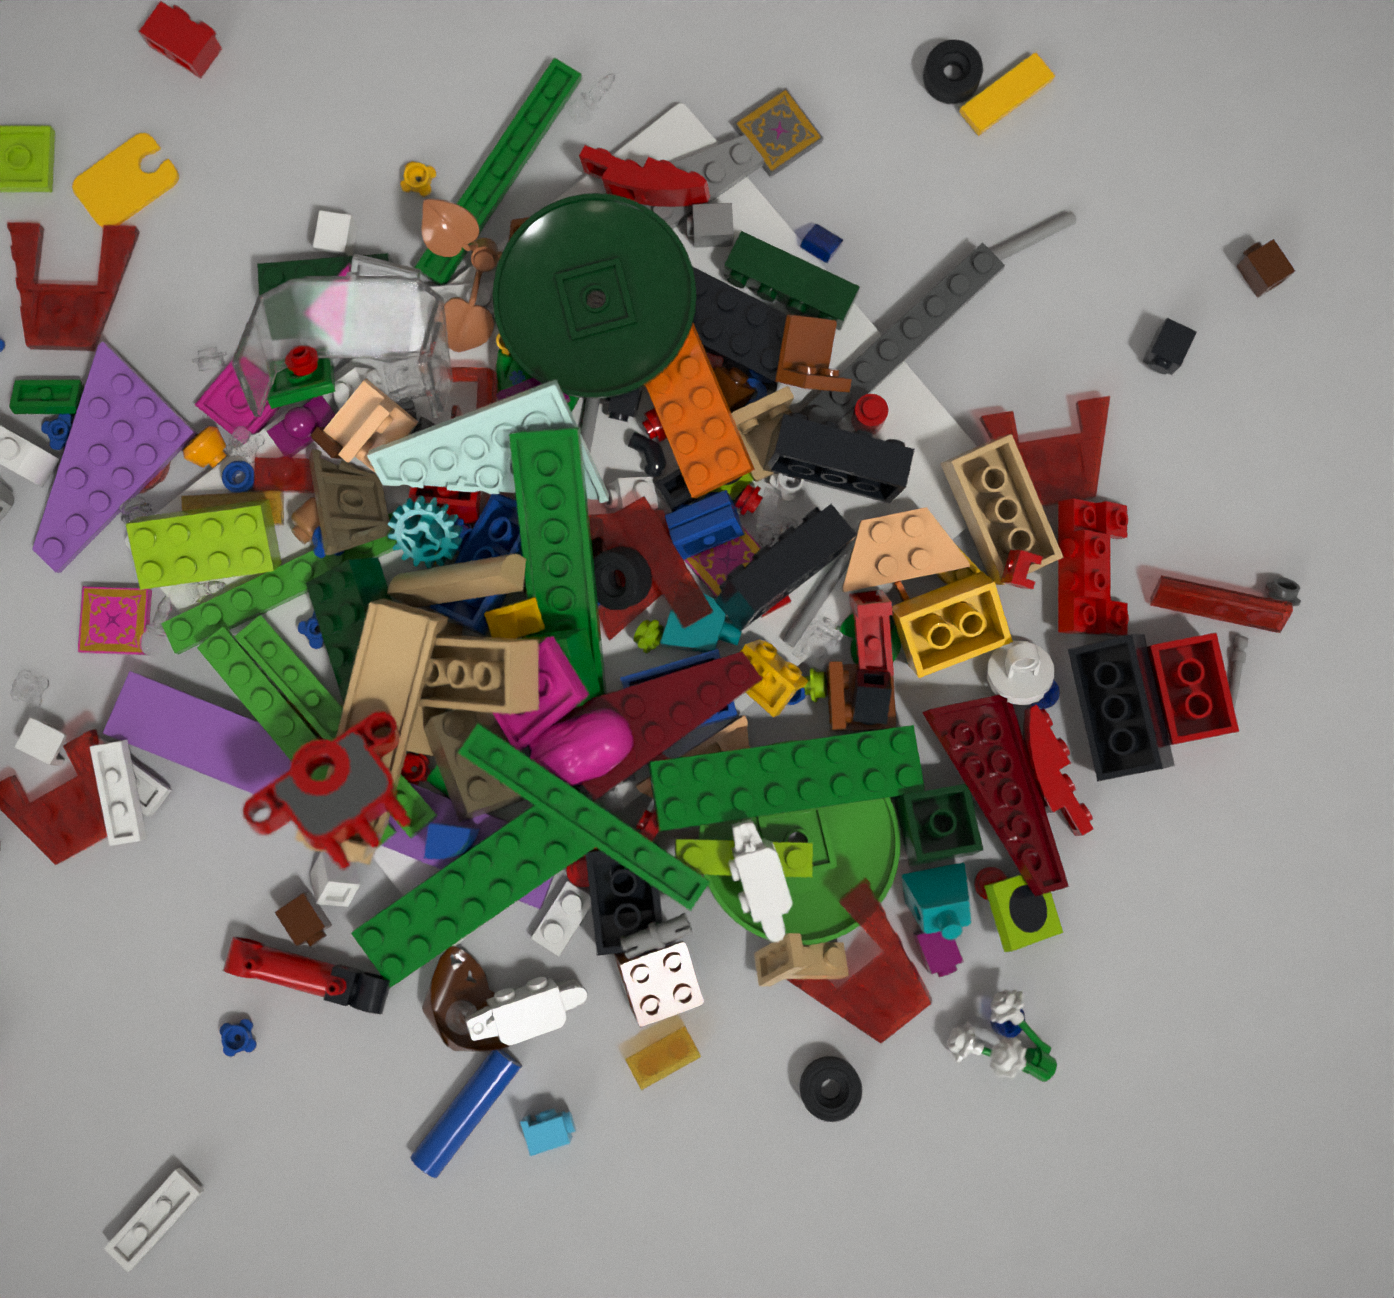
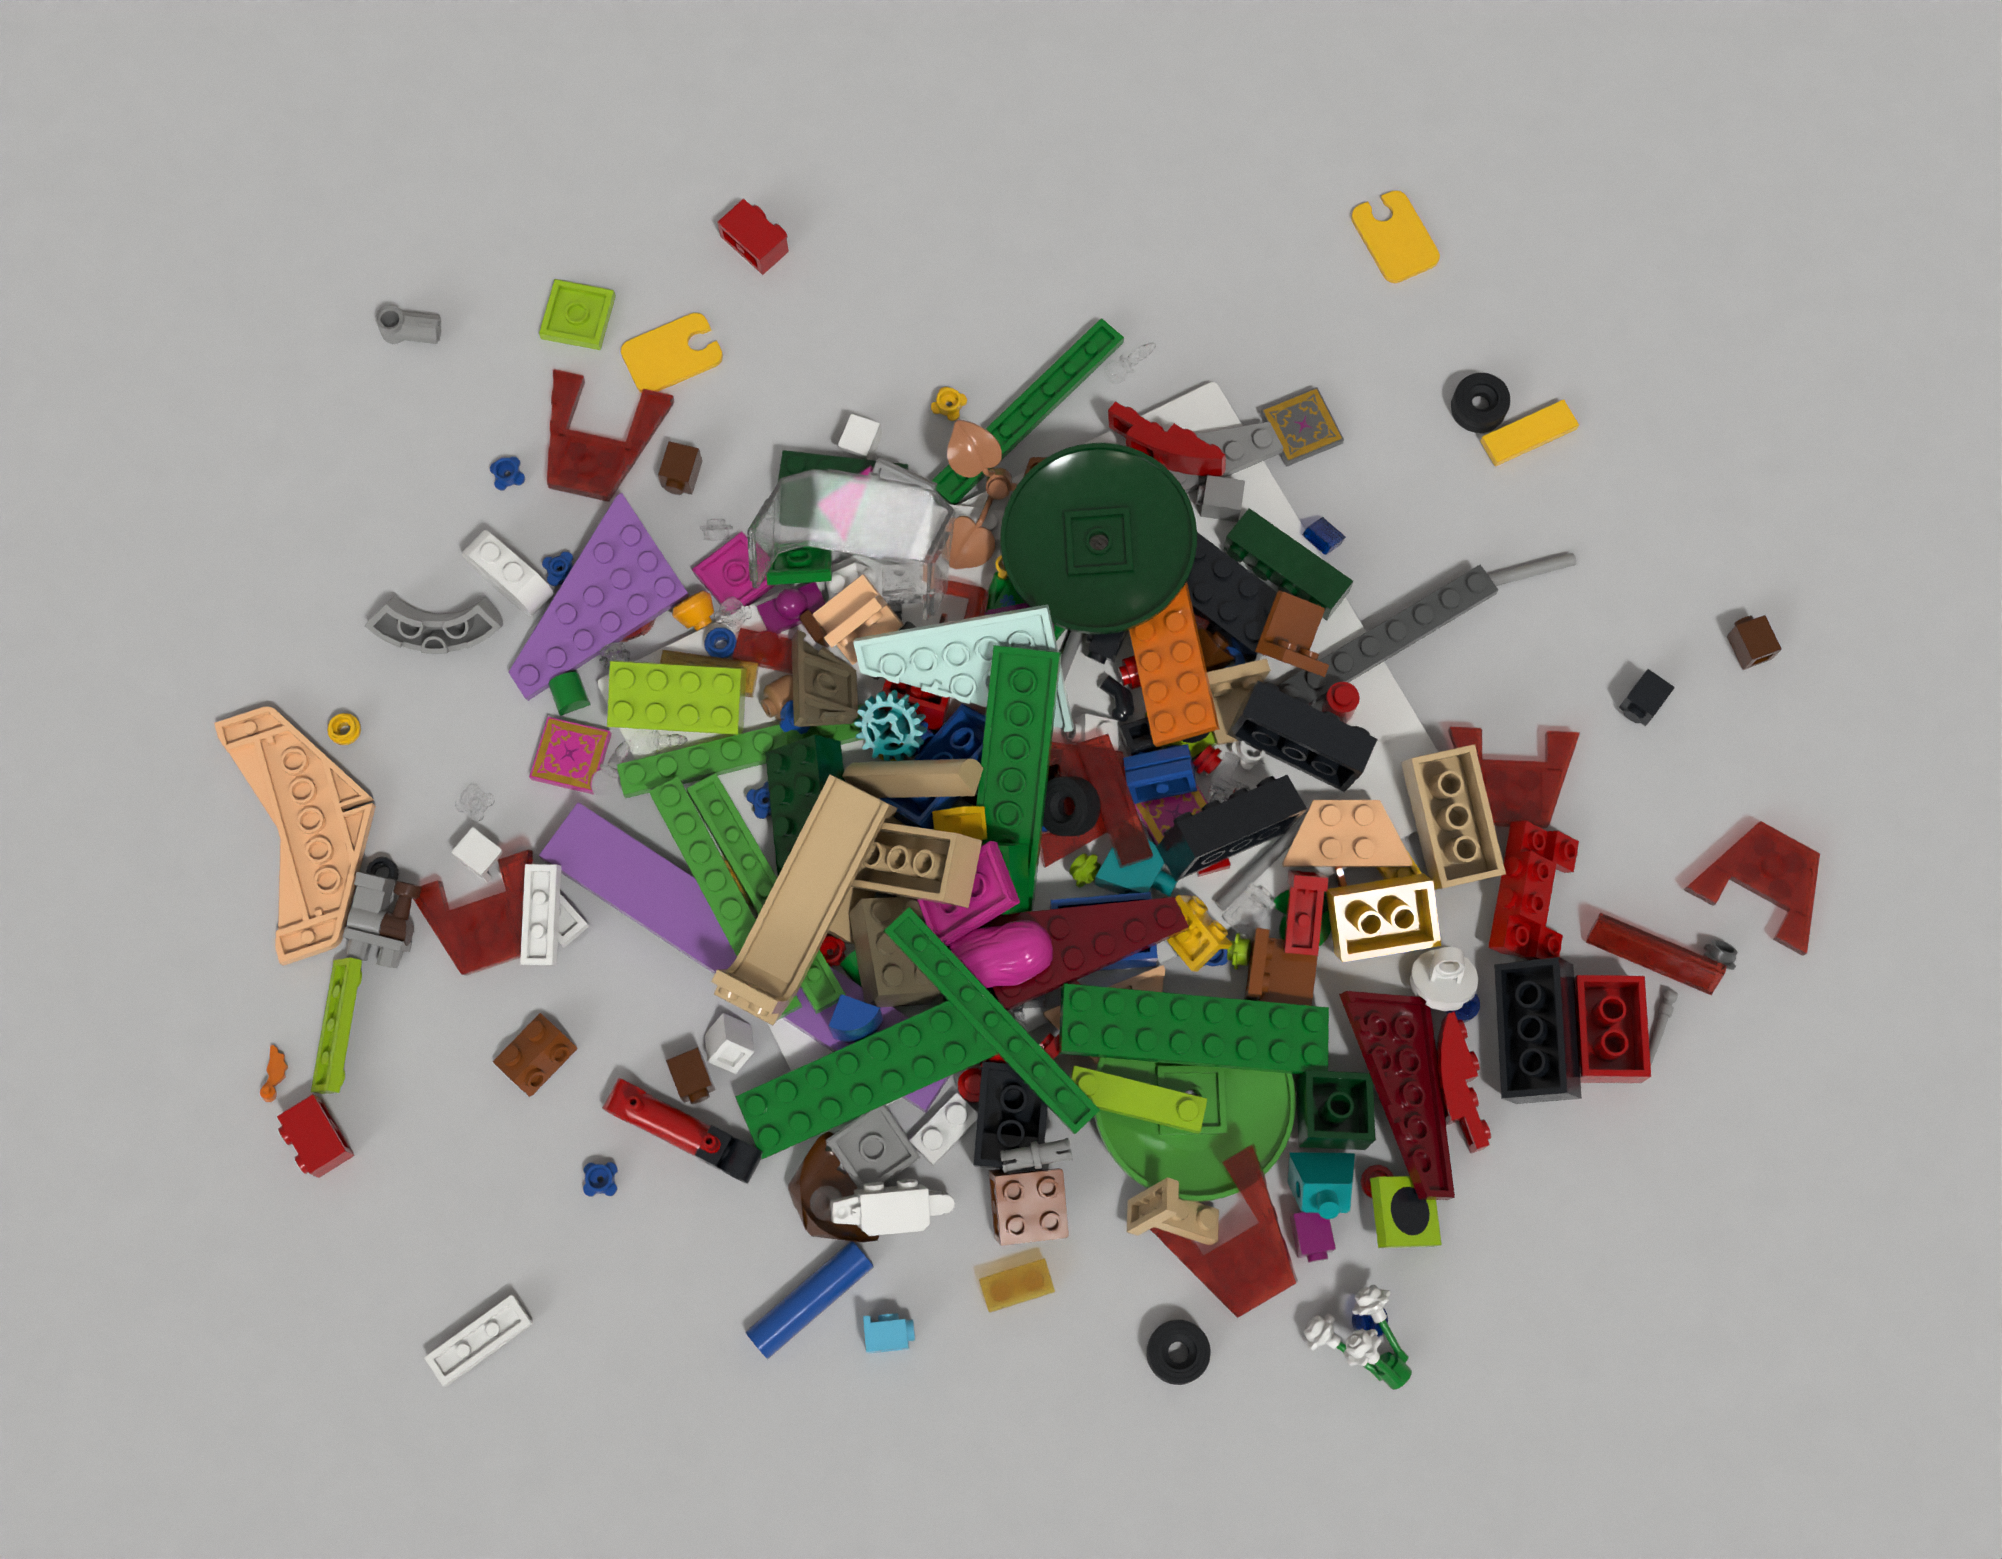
camera: 10 degrees right, 10 degrees down
(46, 396) = (554, 534): green plate -> none
(98, 557) = (568, 692): none -> green brick
(146, 930) = (535, 1055): none -> dark orange bracket
(159, 302) = (680, 468): none -> reddish brown brick
(302, 360) = (806, 546): red plate -> none
(342, 804) = (762, 955): red piece -> none
(497, 954) = (873, 1148): none -> light grey tile
(762, 879) = (1151, 1119): white hinge -> none
(871, 697) = (1292, 971): black brick -> none
(1017, 569) = (1458, 874): red piece -> none
(1322, 496) = (1773, 869): none -> clear red wing

